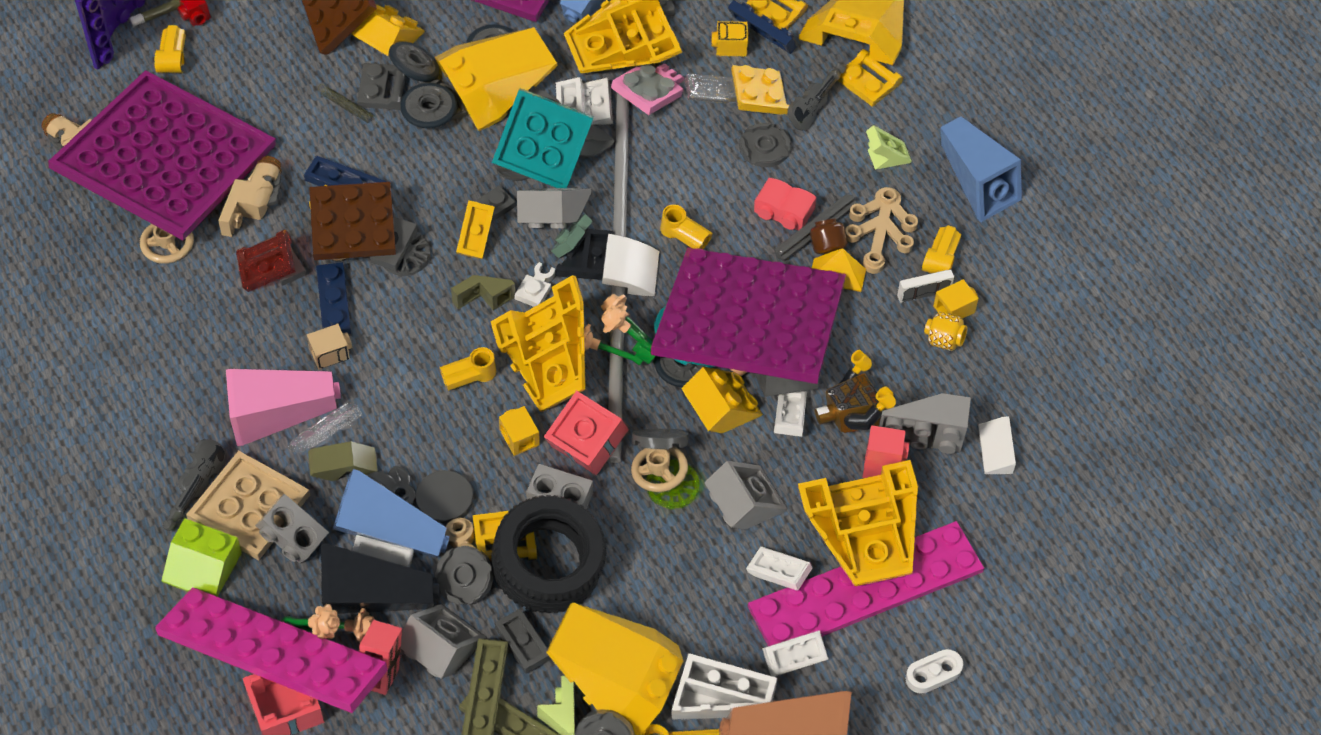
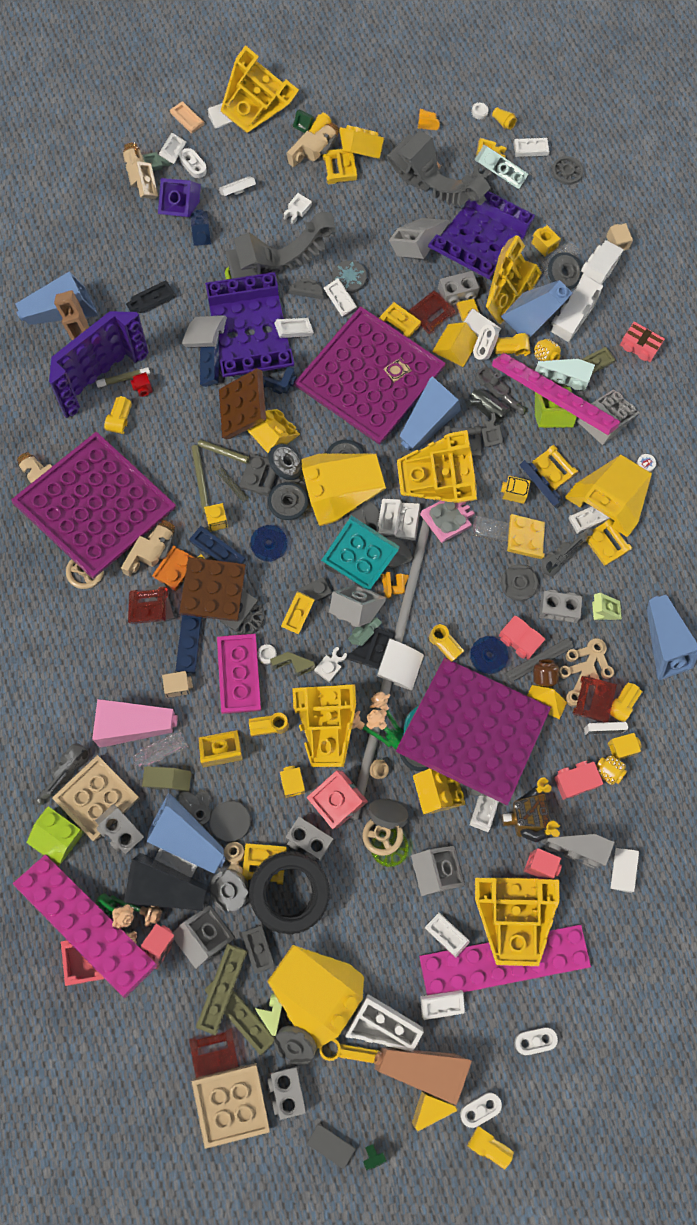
camera: 10 degrees right, 15 degrees up
(289, 213) = (173, 568): none -> orange plate
(302, 106) = (200, 477): none -> olive bar
(325, 67) = (223, 451): none -> olive bar
(335, 141) = (216, 517): none -> yellow brick
(410, 414) = (220, 748): none -> yellow slope
(412, 319) = (238, 674): none -> dark pink plate
(414, 171) = (271, 551): none -> clear blue plate
(442, 290) = (265, 653): none -> white tile
(604, 182) = (401, 580): none -> light orange piece
(633, 393) = (379, 769): none -> tan plate
(747, 244) = (487, 664): none -> clear blue plate
(826, 159) = (560, 611): none -> light grey brick
(840, 50) = (587, 519): none -> white plate
(905, 352) = (578, 780): none -> coral brick
(909, 252) = (601, 700): none -> clear red plate

